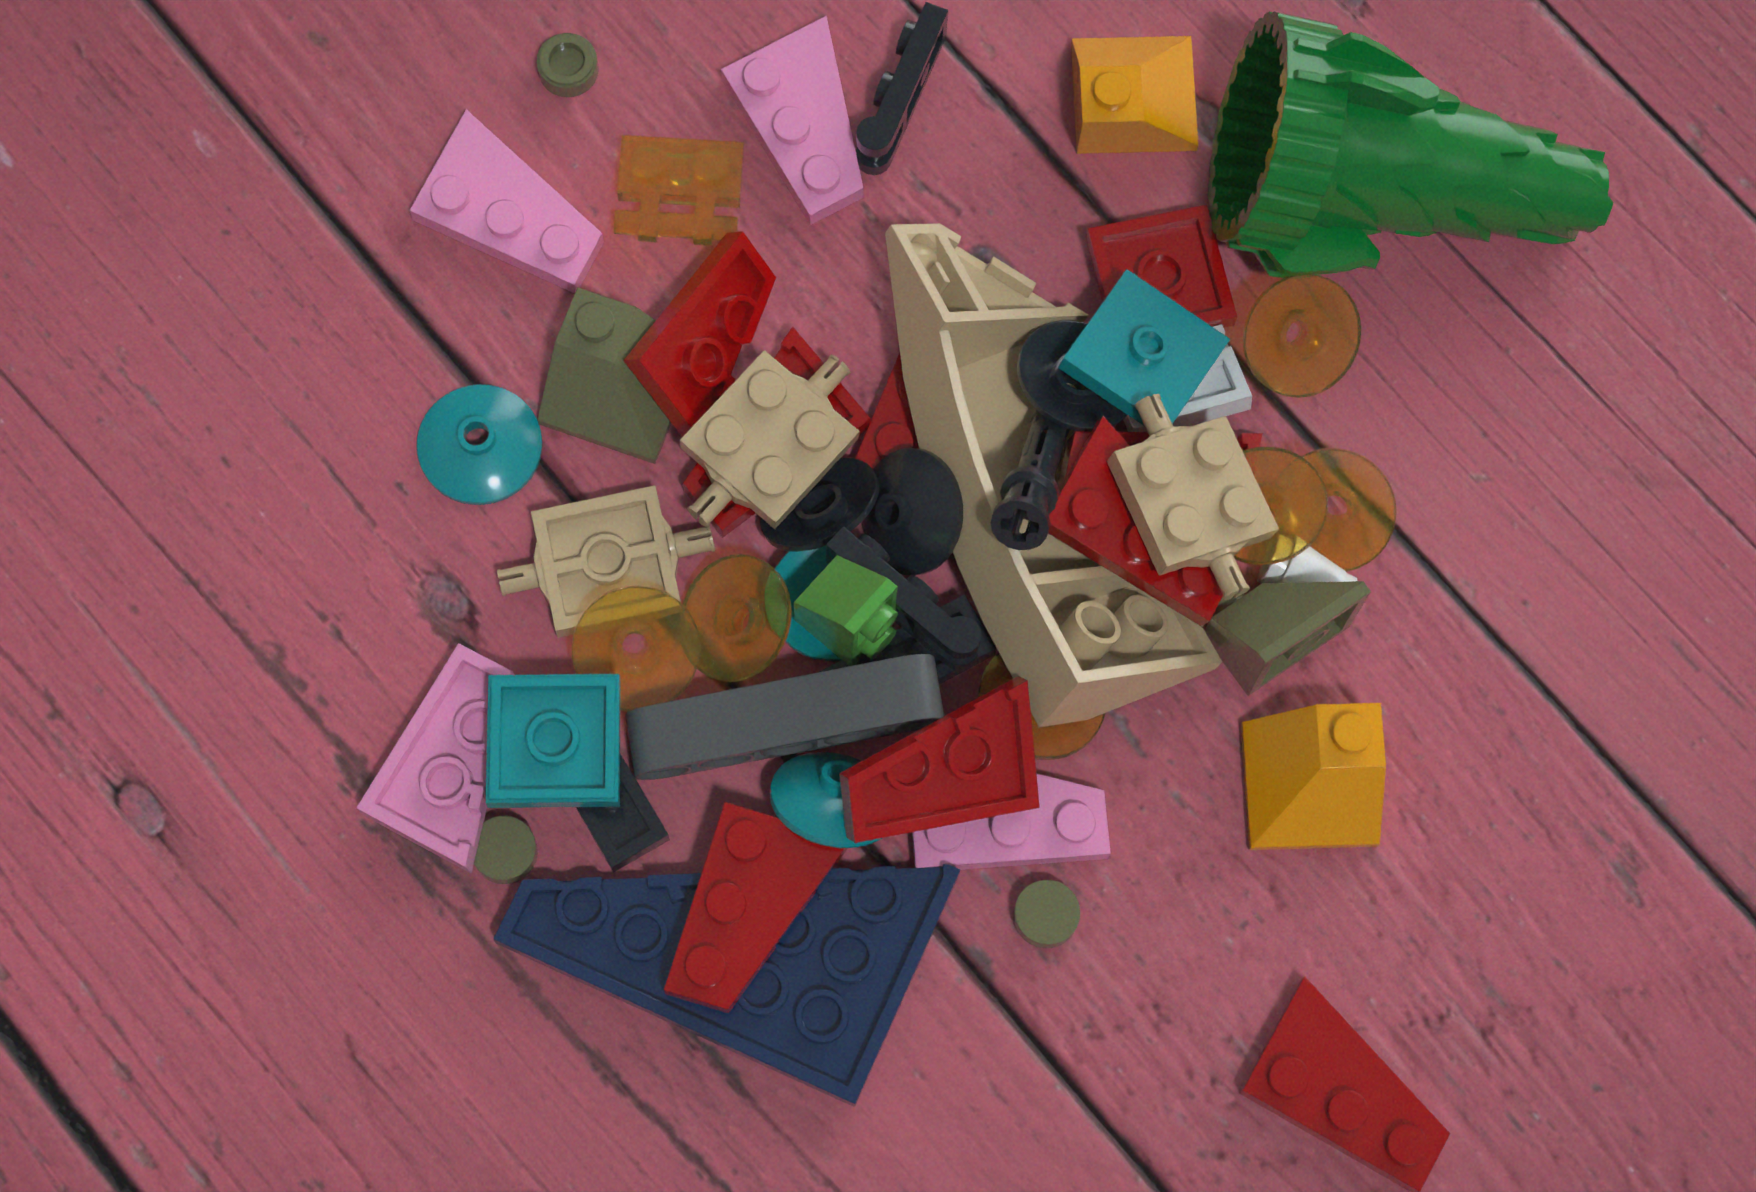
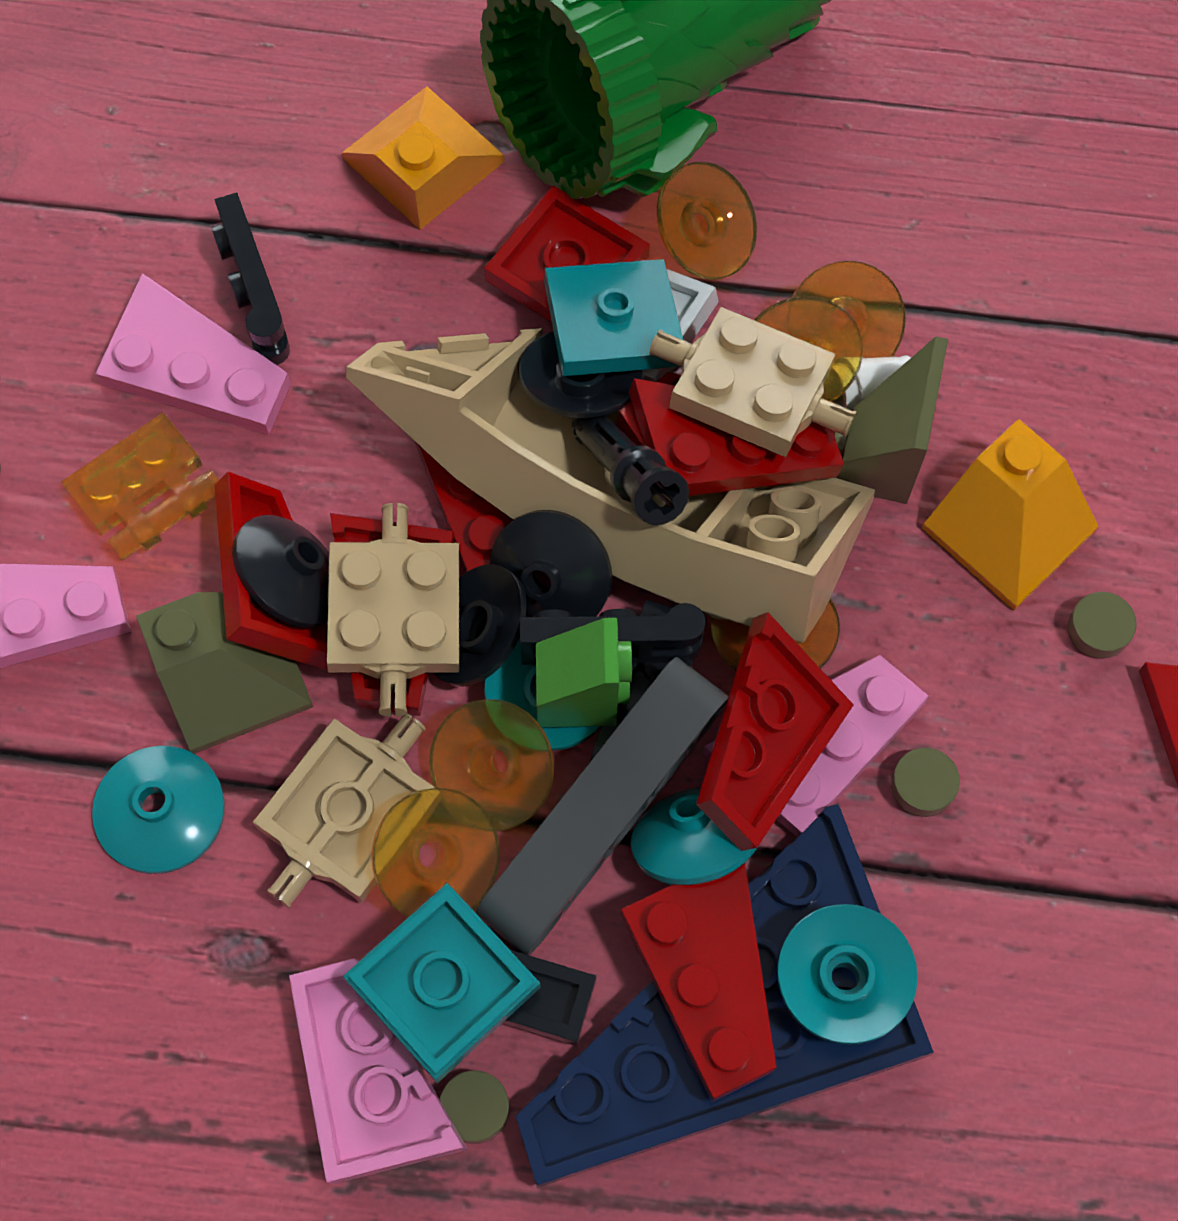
camera: 40 degrees left, 5 degrees down
(716, 339) = (283, 569): none -> black dish
(847, 957) = (868, 947): none -> teal dish
(1303, 919) = (1102, 625): none -> olive tile

